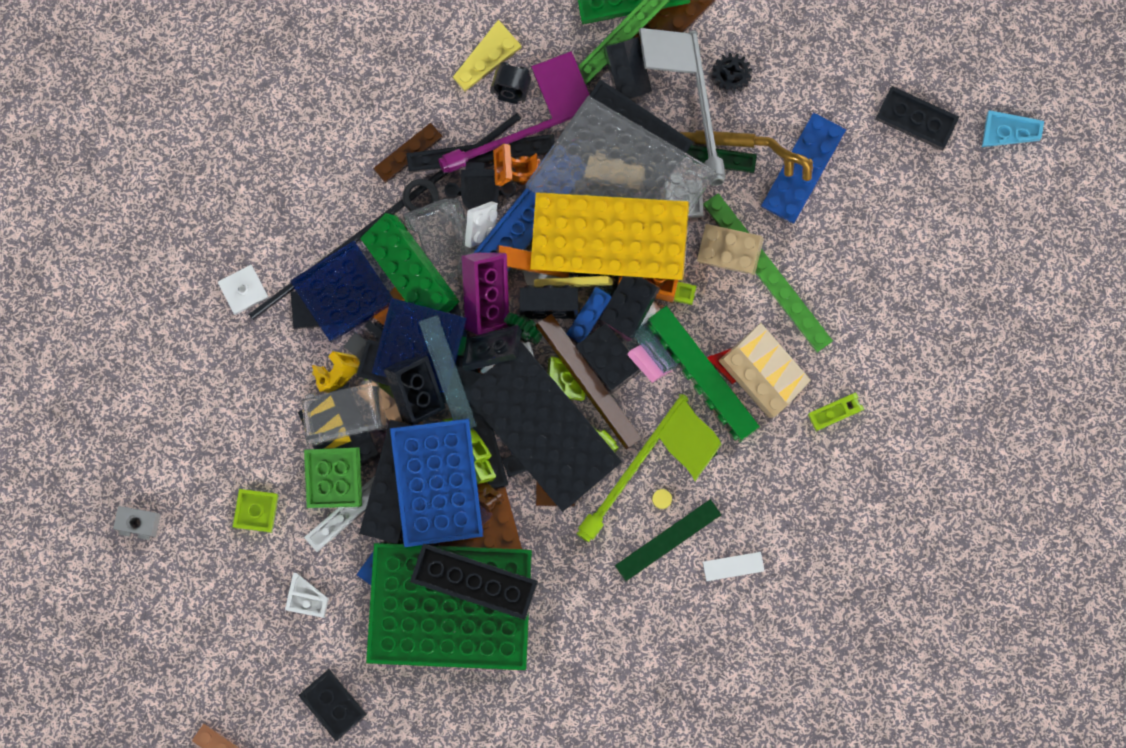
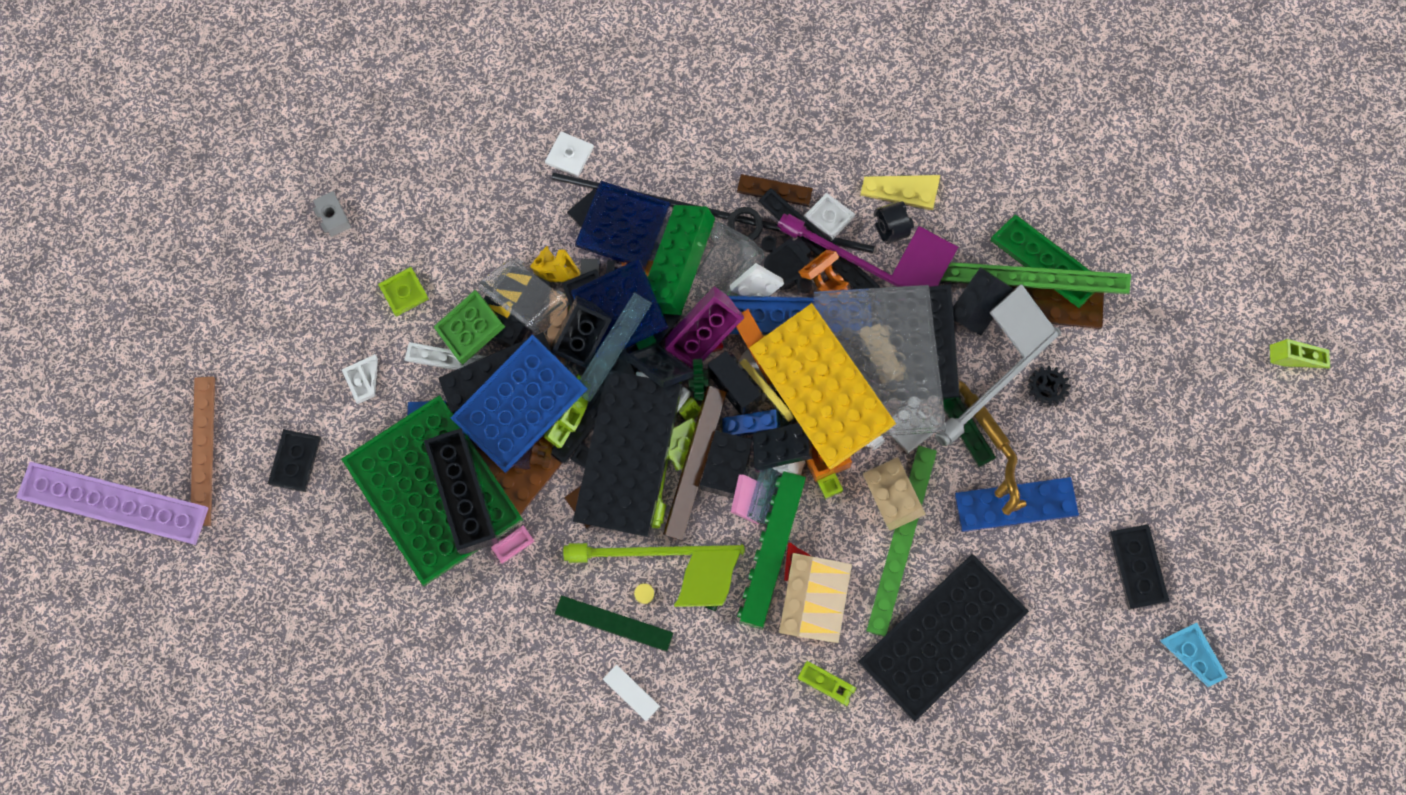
camera: 55 degrees right, 5 degrees down
(464, 128) = (829, 216): none -> white plate
(541, 353) = (689, 409): none -> lime tile
(543, 573) = (512, 544): none -> bright pink tile
(865, 299) = (943, 637): none -> black plate

